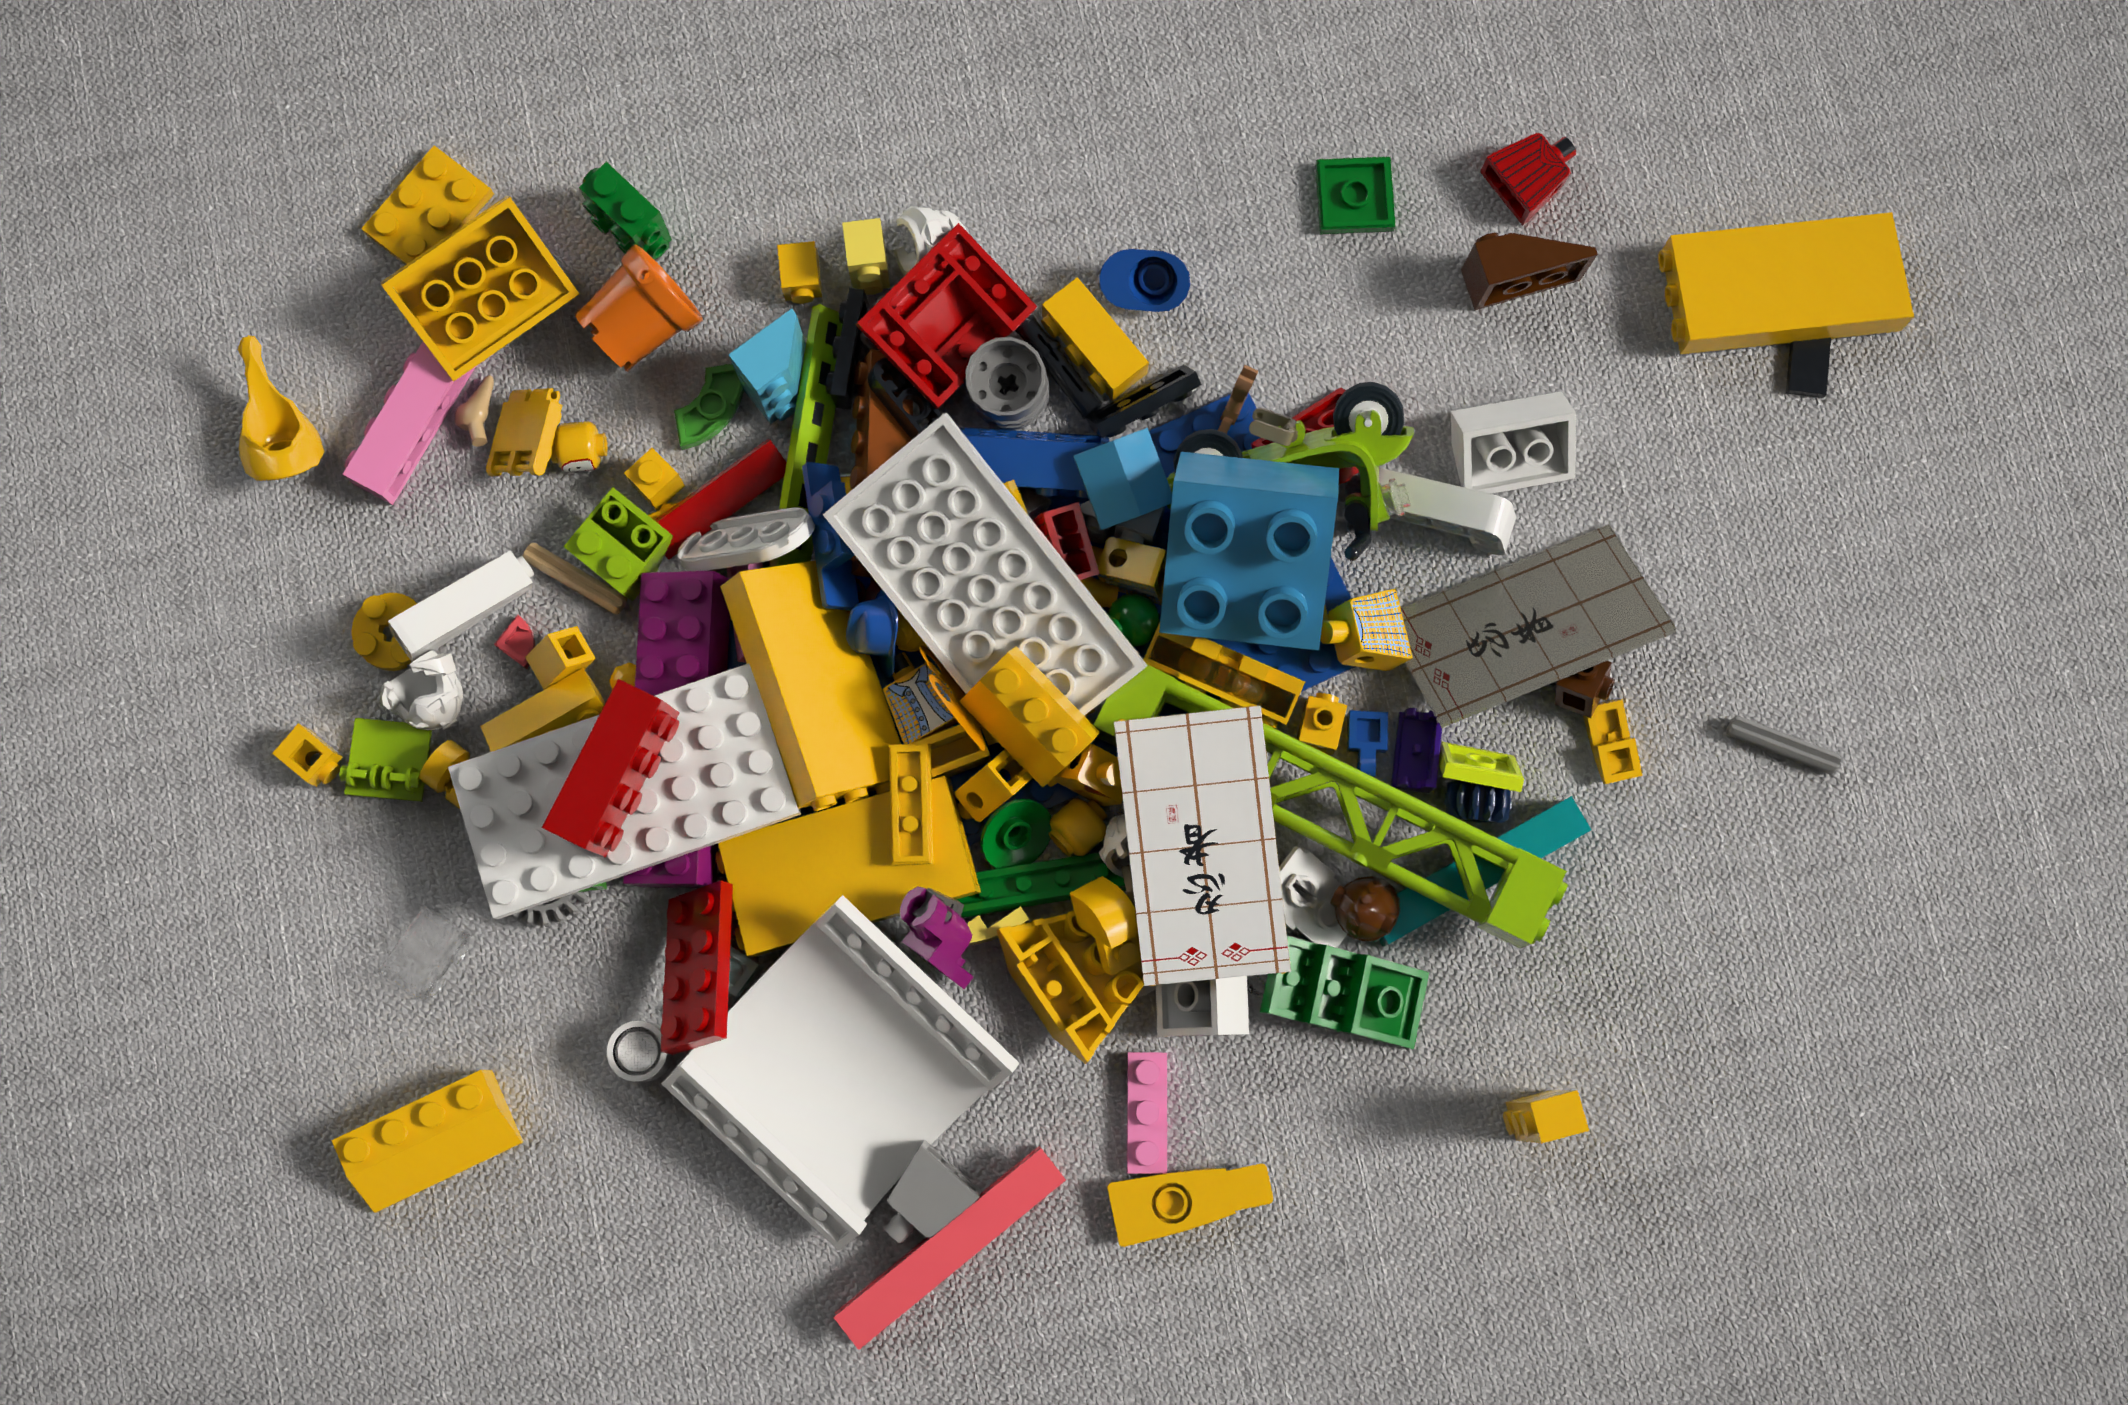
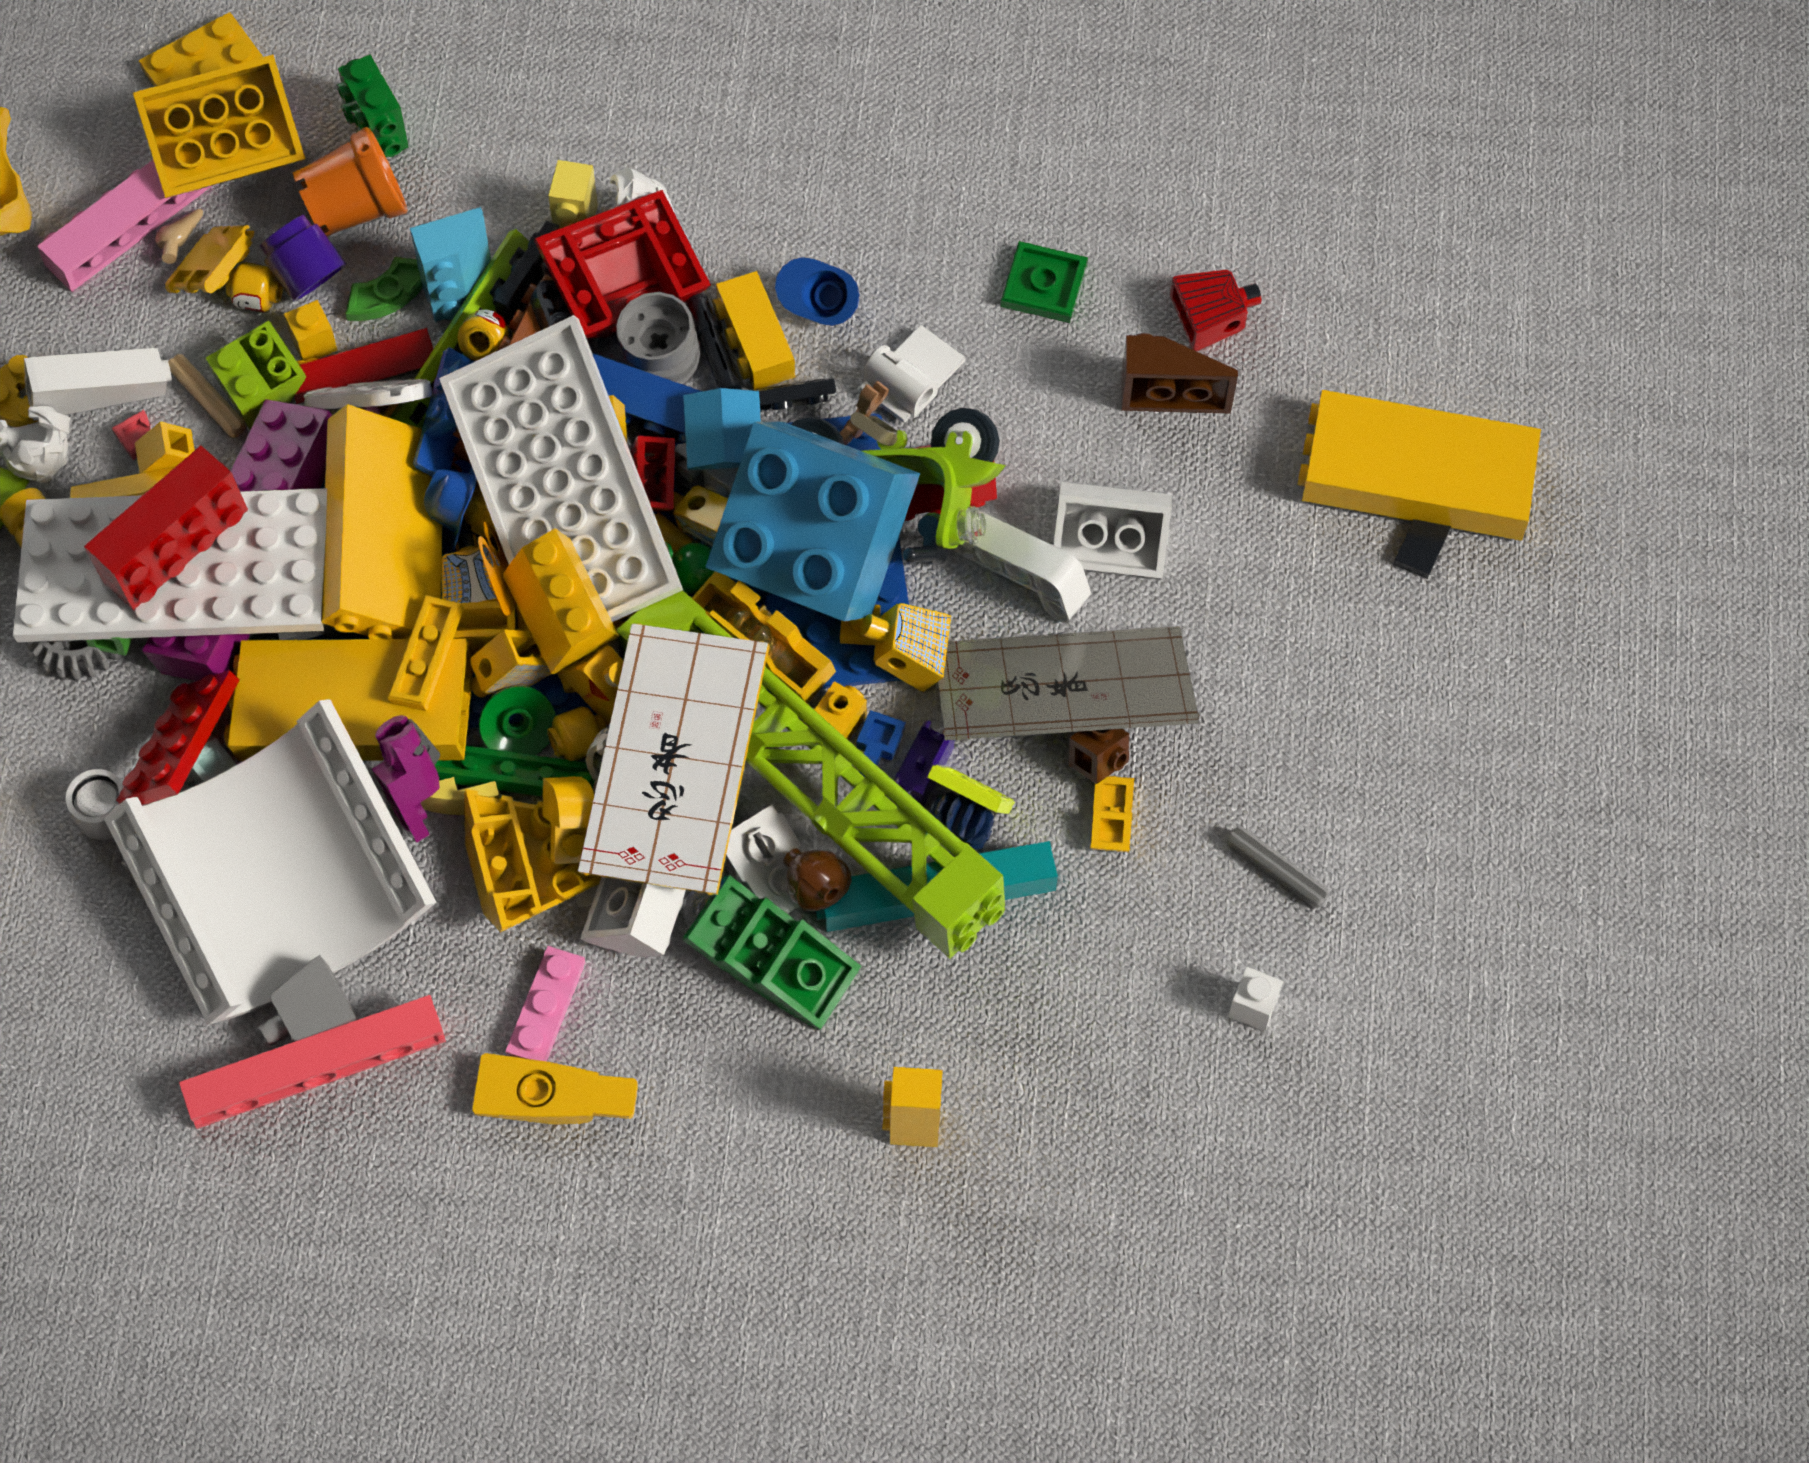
camera: 20 degrees right, 15 degrees down
(618, 405) = (301, 257): none -> dark purple piece
(799, 272) = (510, 200): yellow brick -> none
(833, 435) = (481, 334): none -> yellow head
(1262, 335) = (912, 372): none -> white piece
(1812, 889) = (1255, 999): none -> white brick

